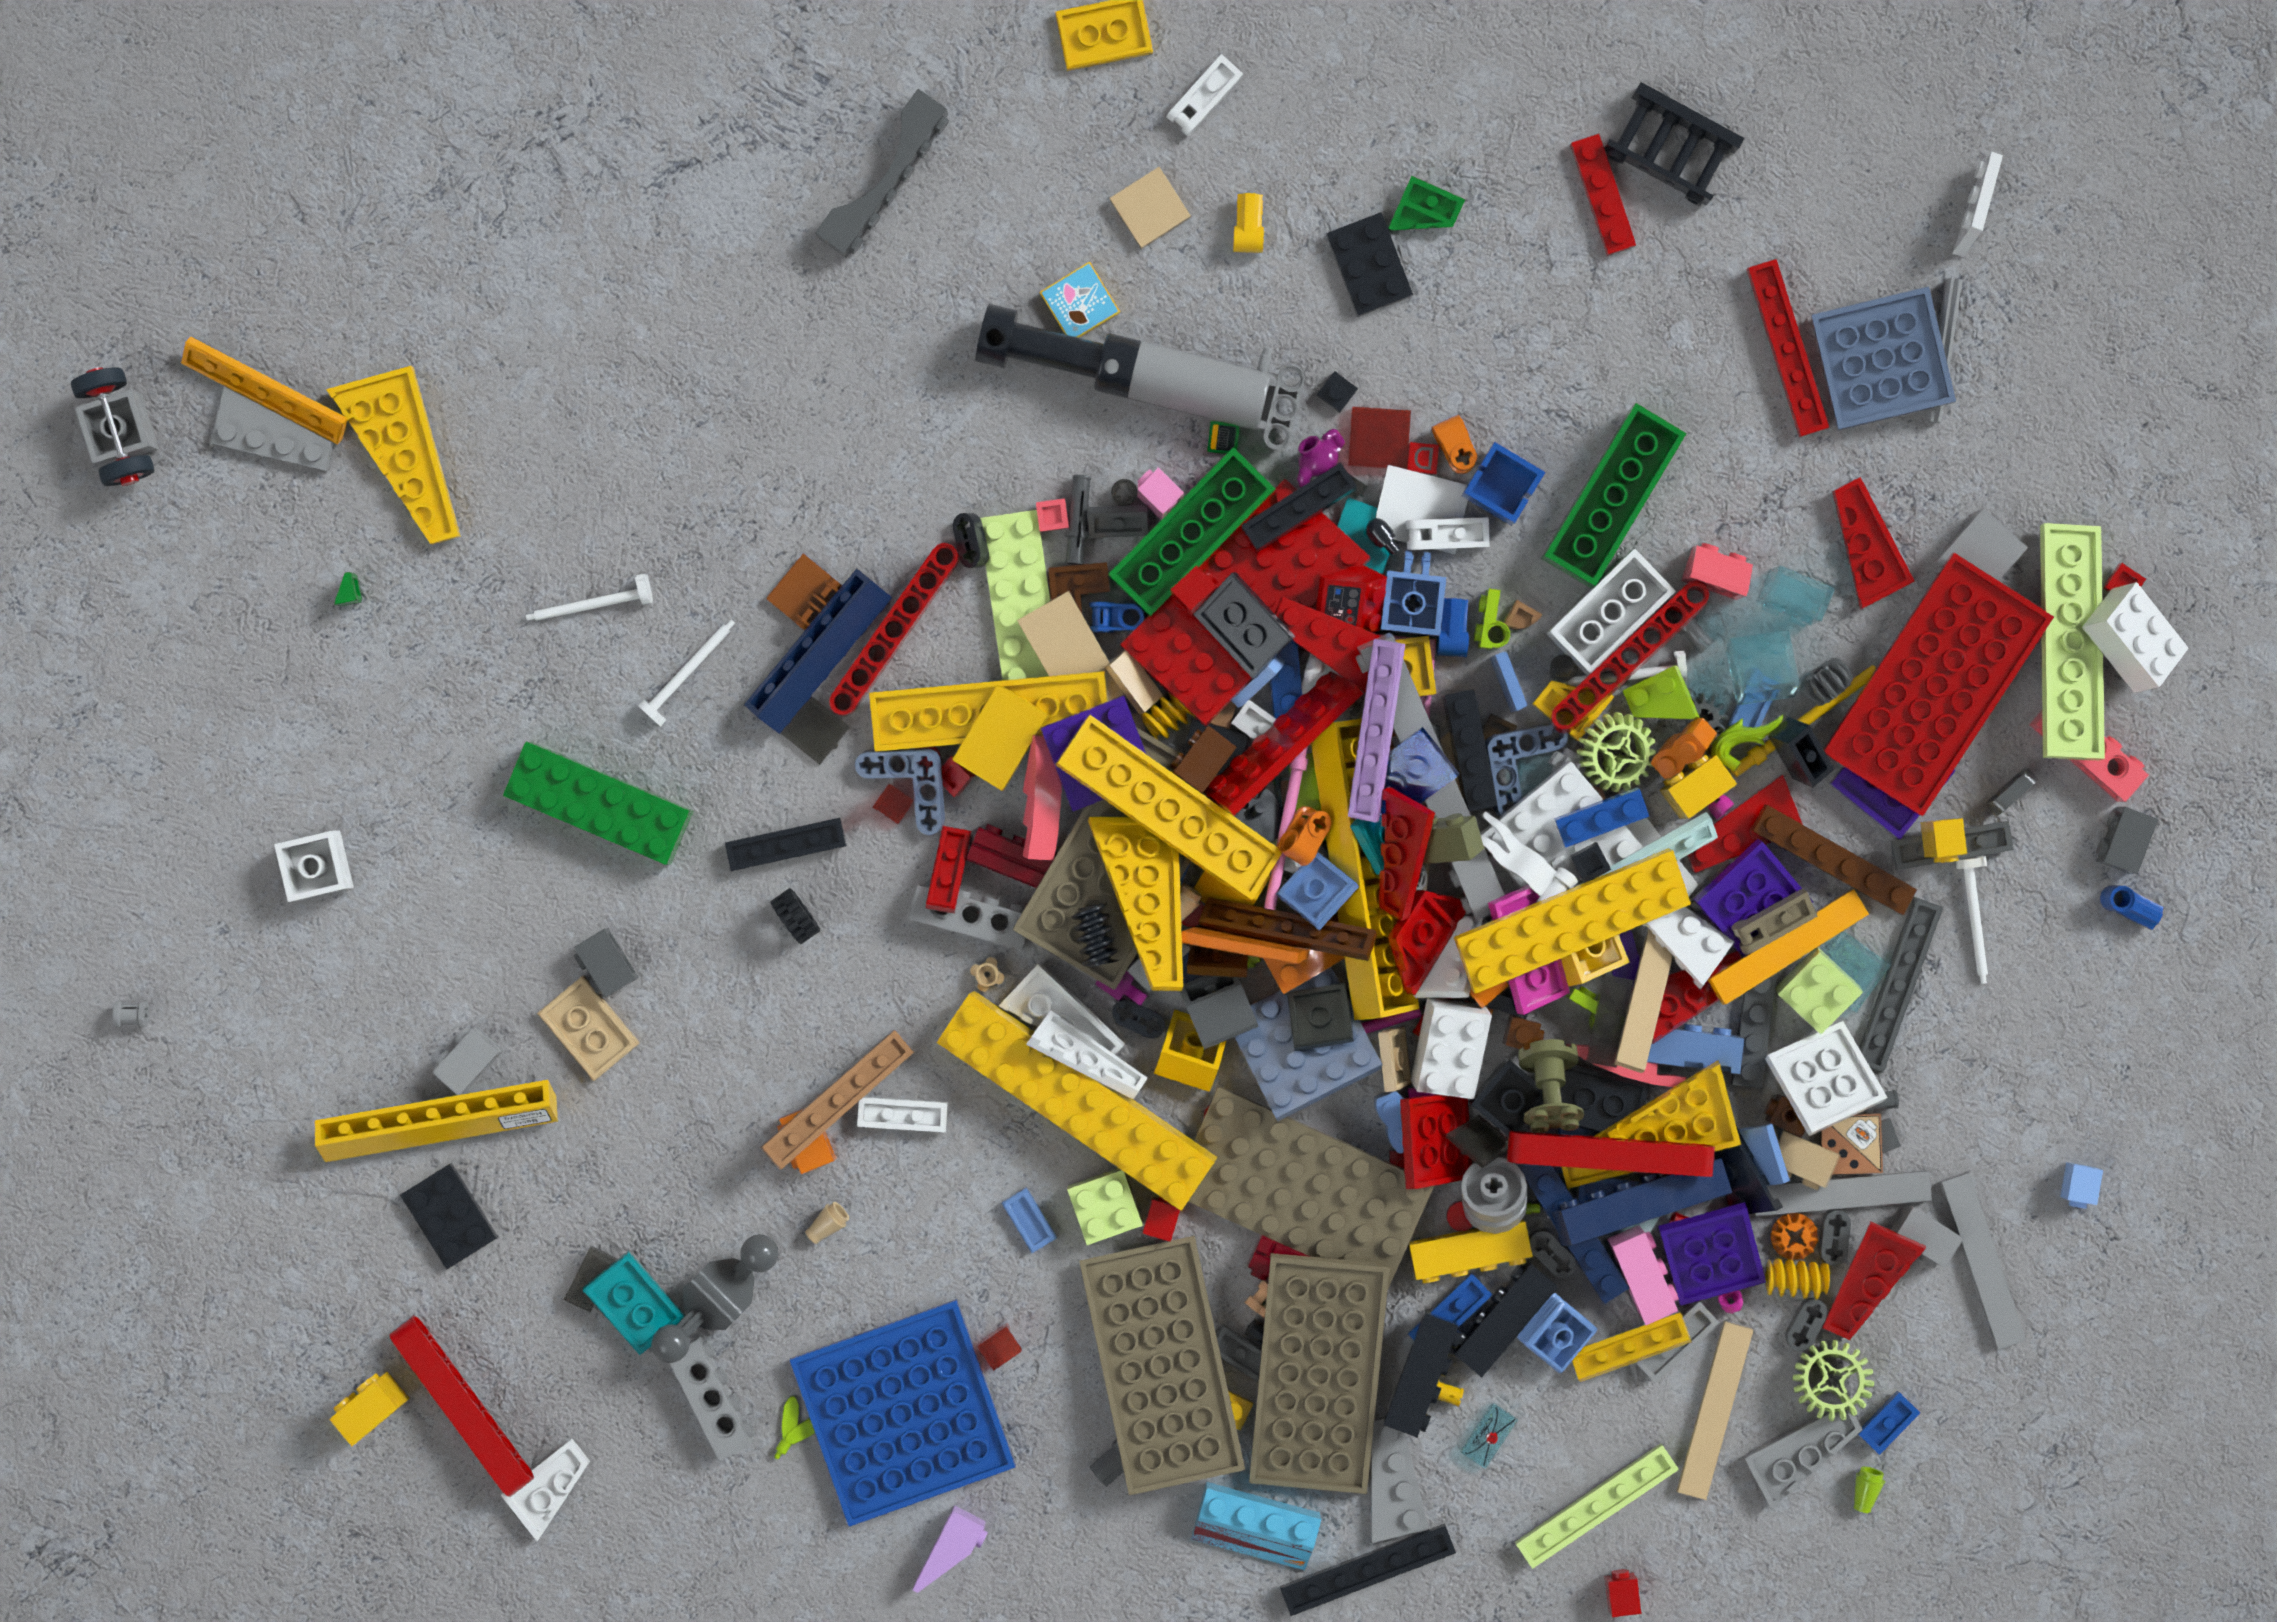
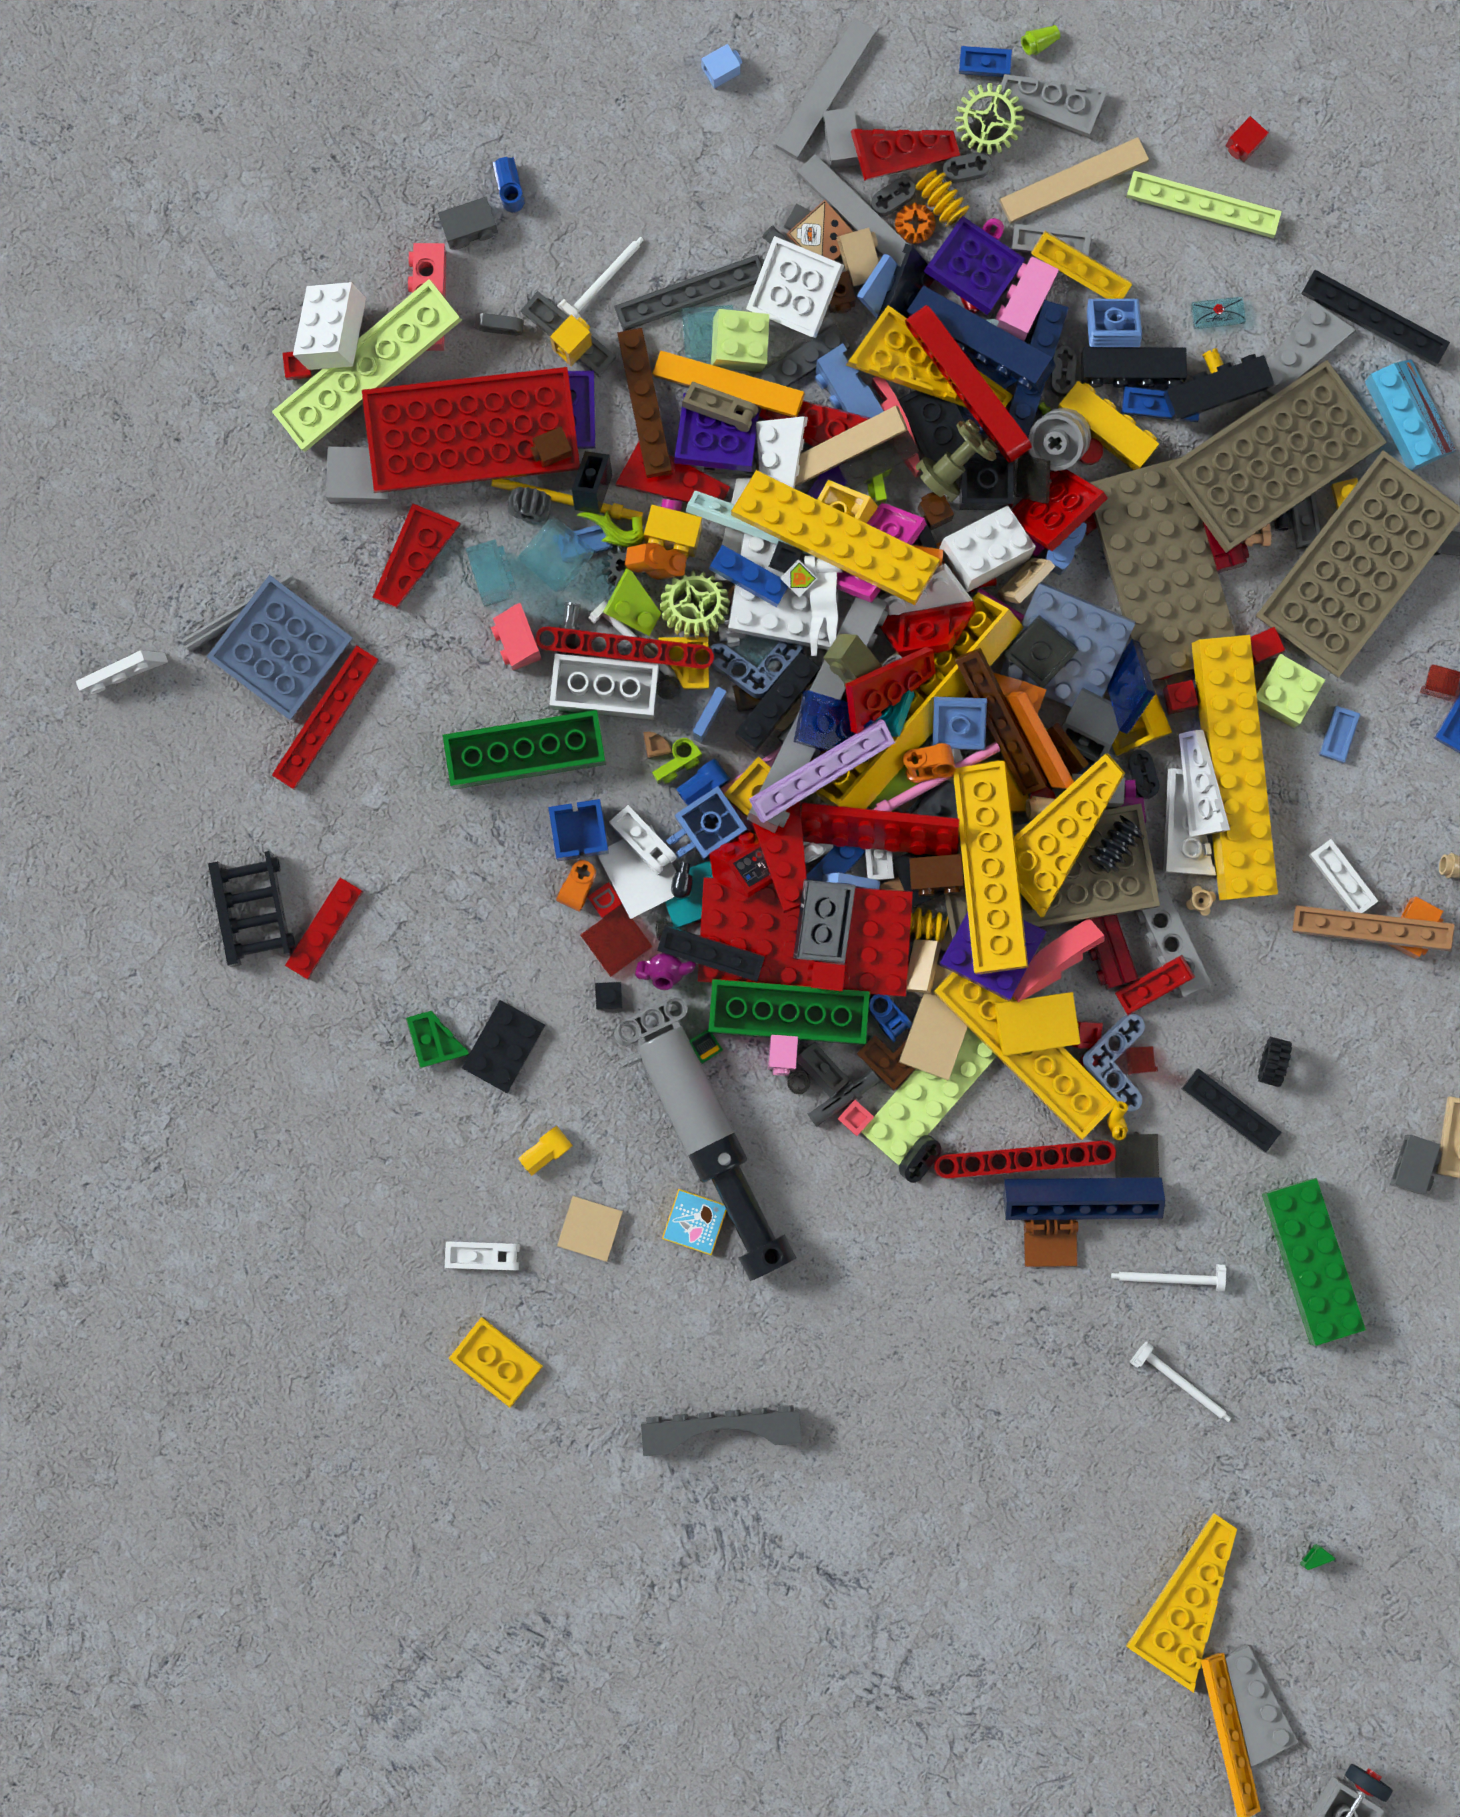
camera: 135 degrees left, 5 degrees down
(858, 736) = (1117, 1122): none -> yellow arm
(1178, 1107) = (1180, 697): none -> red brick
(1223, 1065) = (1130, 687): none -> clear blue tile
(1563, 857) = (798, 578): none -> tile
(1862, 739) = (551, 447): none -> reddish brown brick

